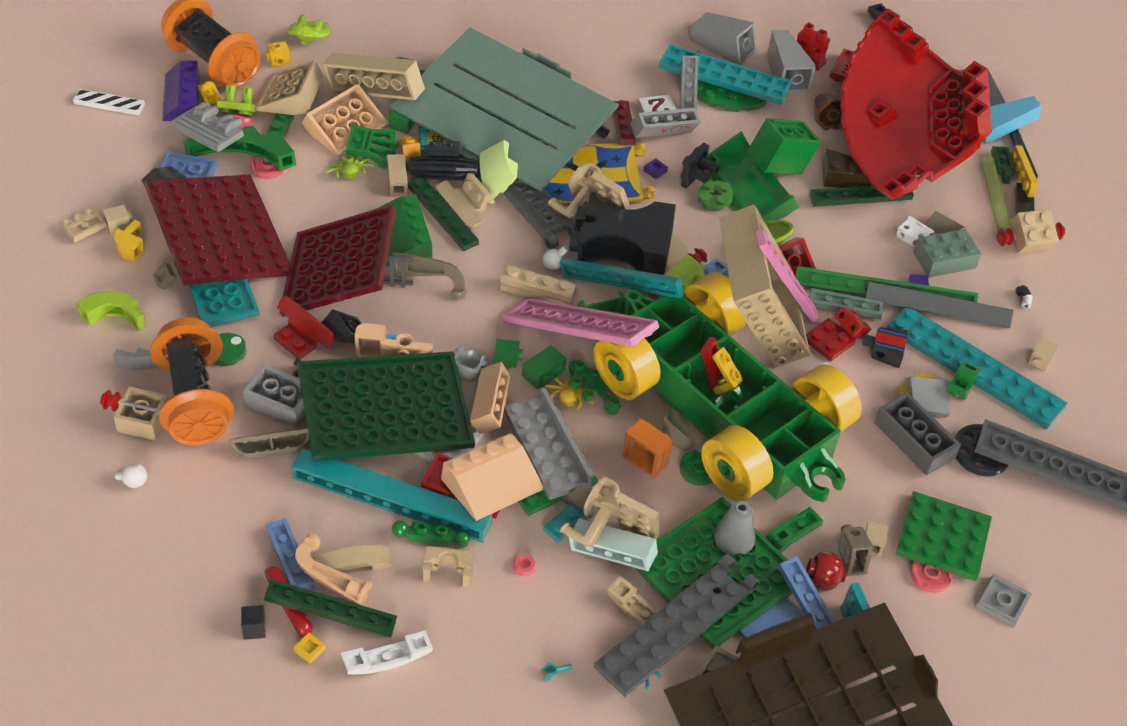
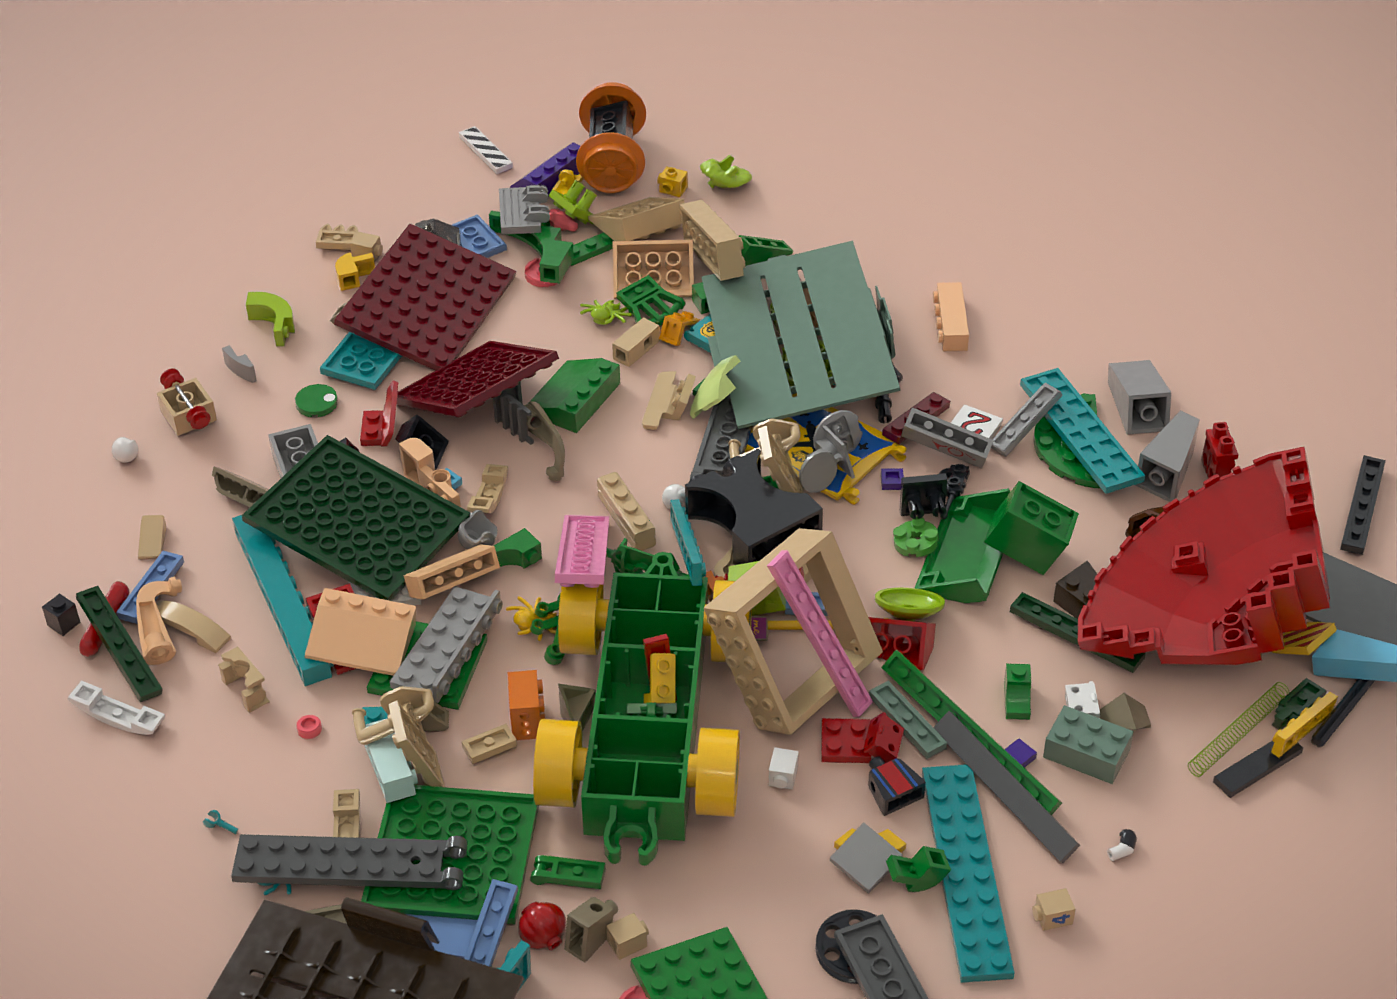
camera: 50 degrees right, 5 degrees down
(195, 412) = (212, 423): orange brick -> none
(239, 522) = (151, 536): none -> tan slope
(309, 648) = (74, 664): yellow plate -> none
(430, 534) = (270, 647): green plate -> none
(432, 333) = (490, 489): none -> tan slope
(443, 162) = (683, 352): black plate -> none
(443, 213) = (635, 399): dark green plate -> none
(544, 367) = (536, 581): green brick -> none
(564, 47) = (951, 316): none -> light nougat brick
(615, 167) = (833, 441): none -> light grey piece
(650, 488) = (489, 743): none -> tan plate
(689, 143) = (958, 476): none -> black piece
(736, 530) = (498, 824): light grey cone -> none
(876, 247) = (1017, 691): none -> green arch
(917, 433) = (798, 878): dark grey brick -> none
(1032, 231) = (1220, 787): tan brick -> none

